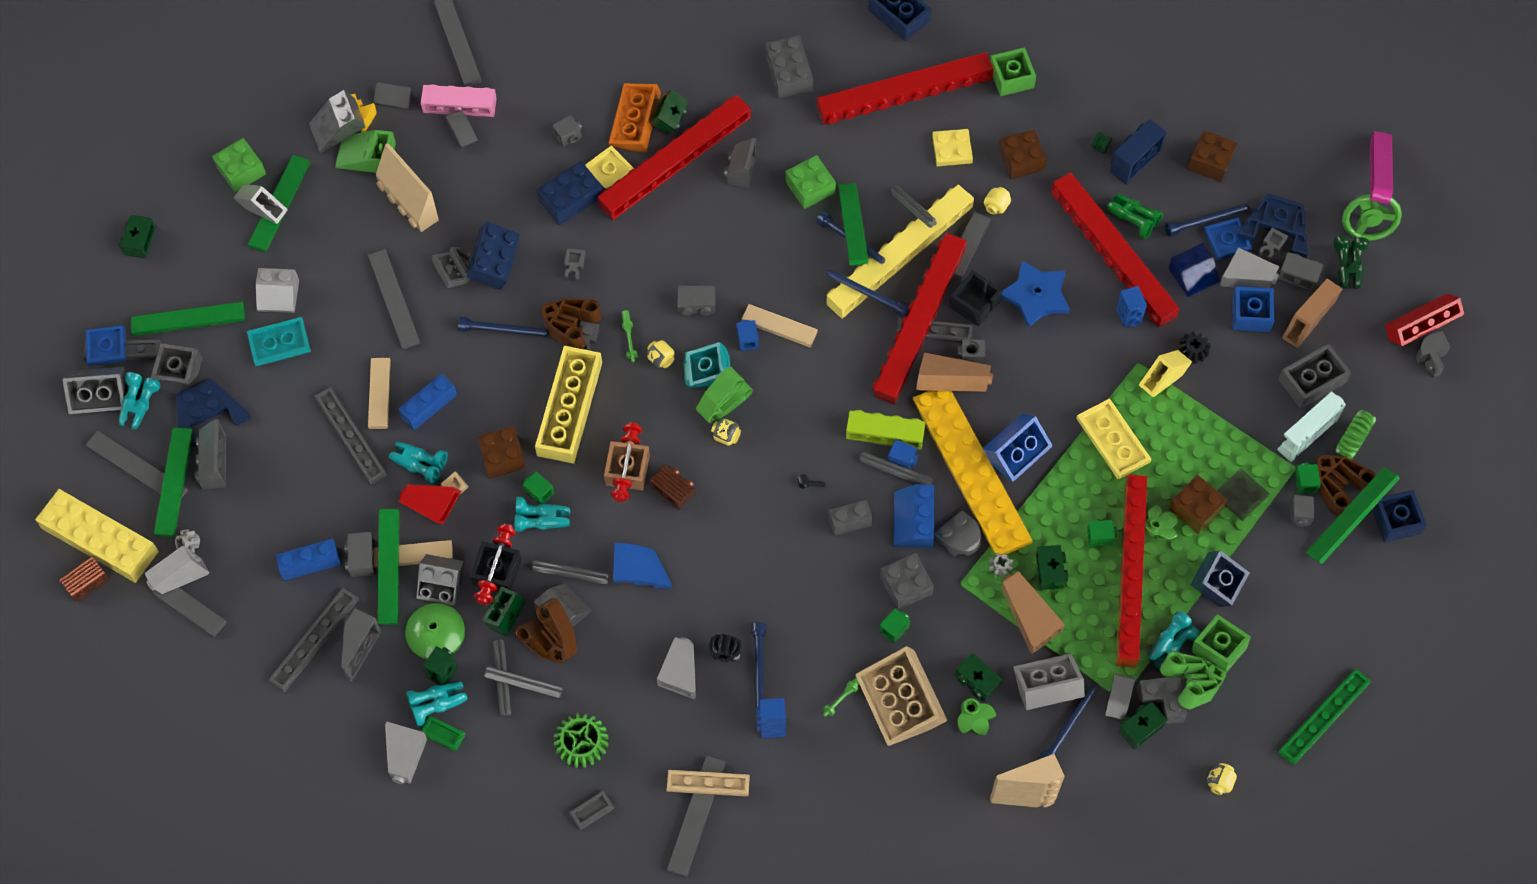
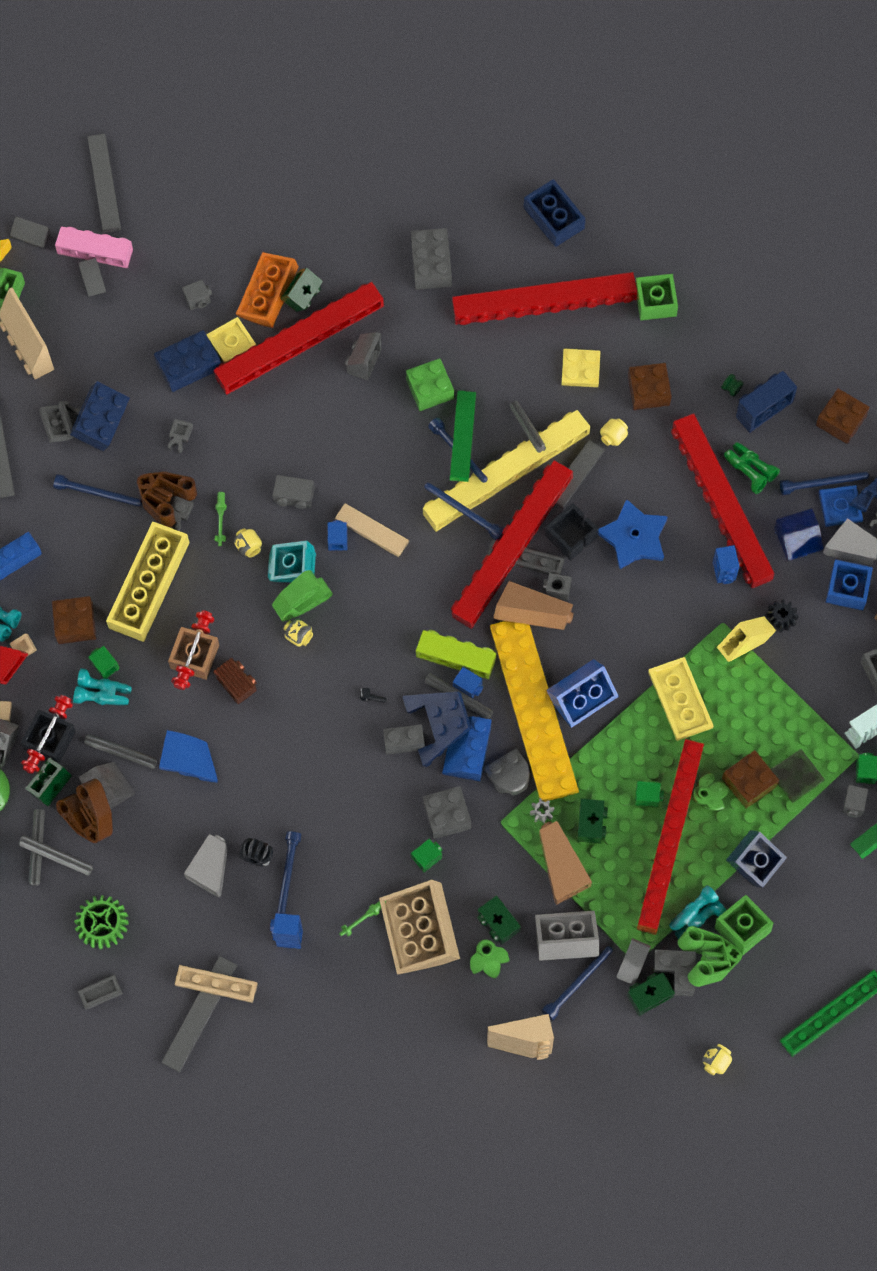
camera: 10 degrees right, 5 degrees up
(890, 491) = (446, 717): none -> dark blue wing

